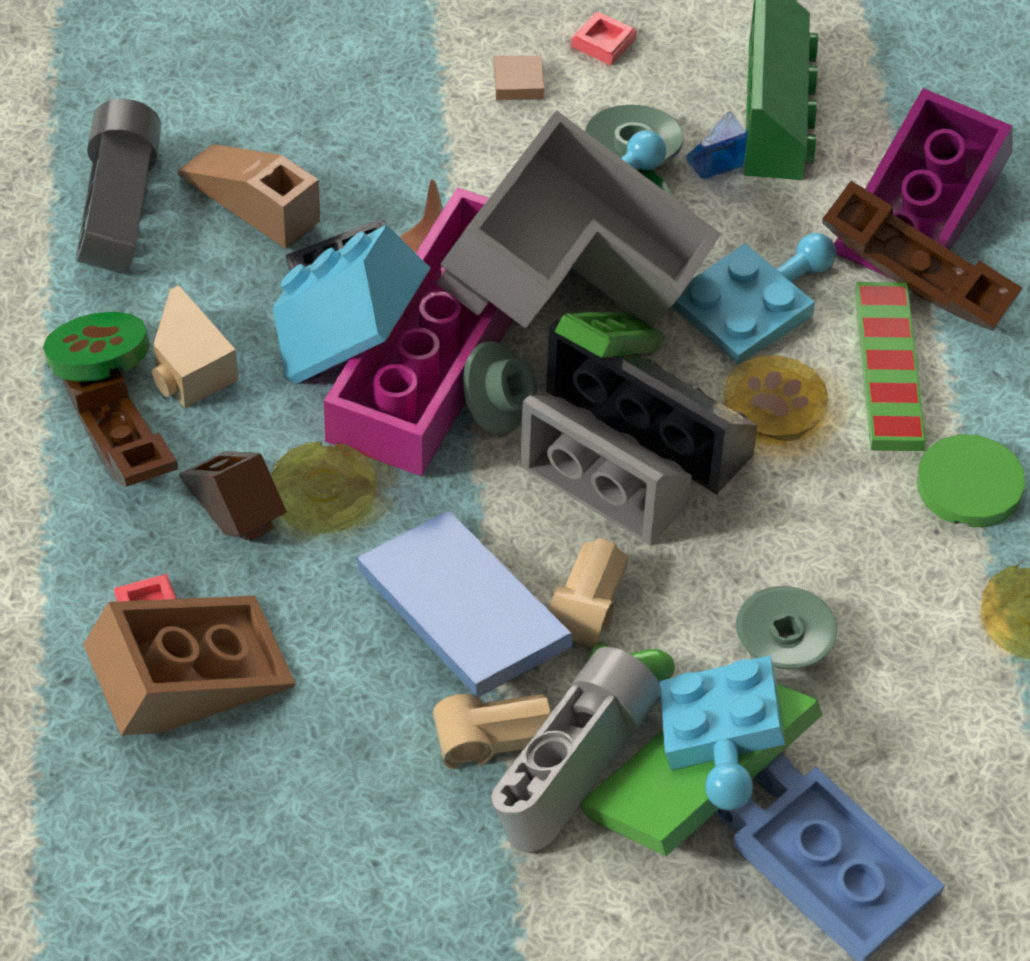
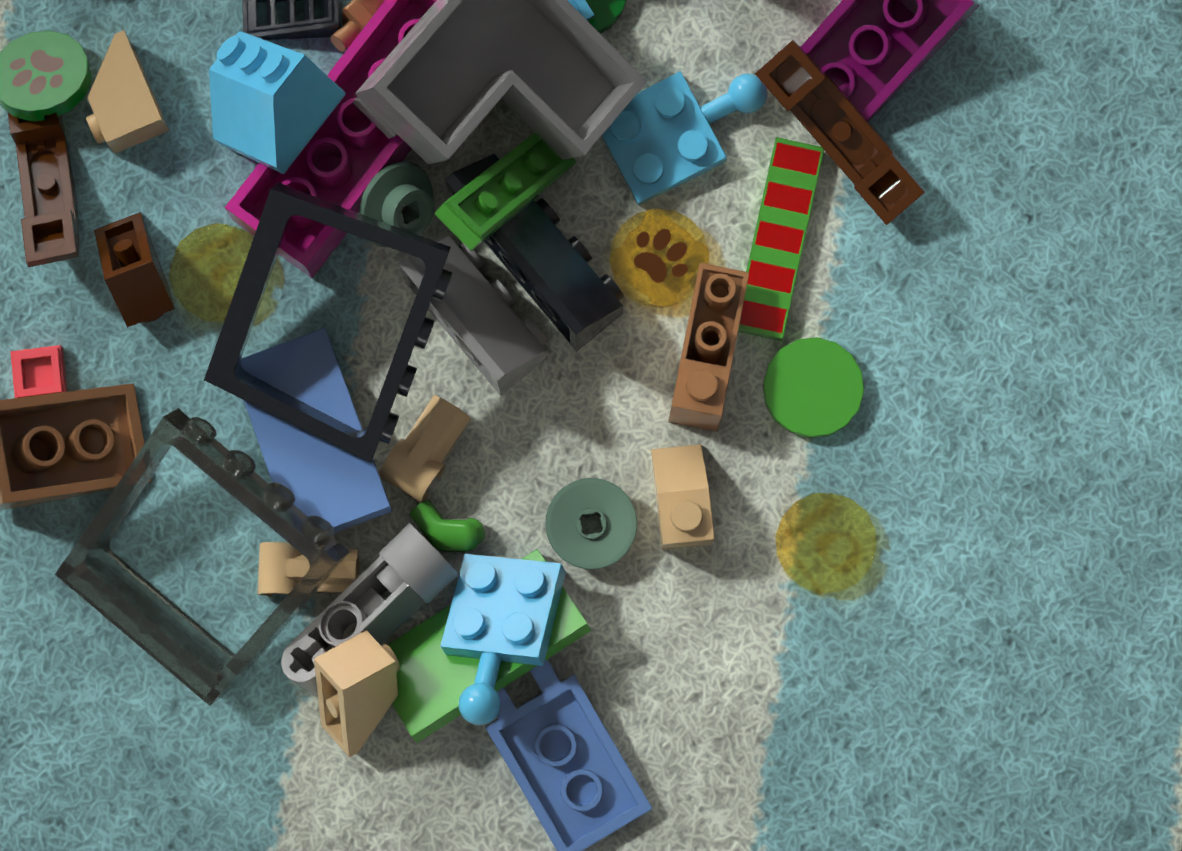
camera: 15 degrees right, 30 degrees up
(247, 762) = (147, 613): none -> clear smoke windscreen
(399, 362) = (225, 365): none -> black windscreen
(582, 816) = (355, 689): none -> tan slope
(855, 459) = (708, 347): none -> medium nougat slope
(877, 596) = (682, 497): none -> tan slope

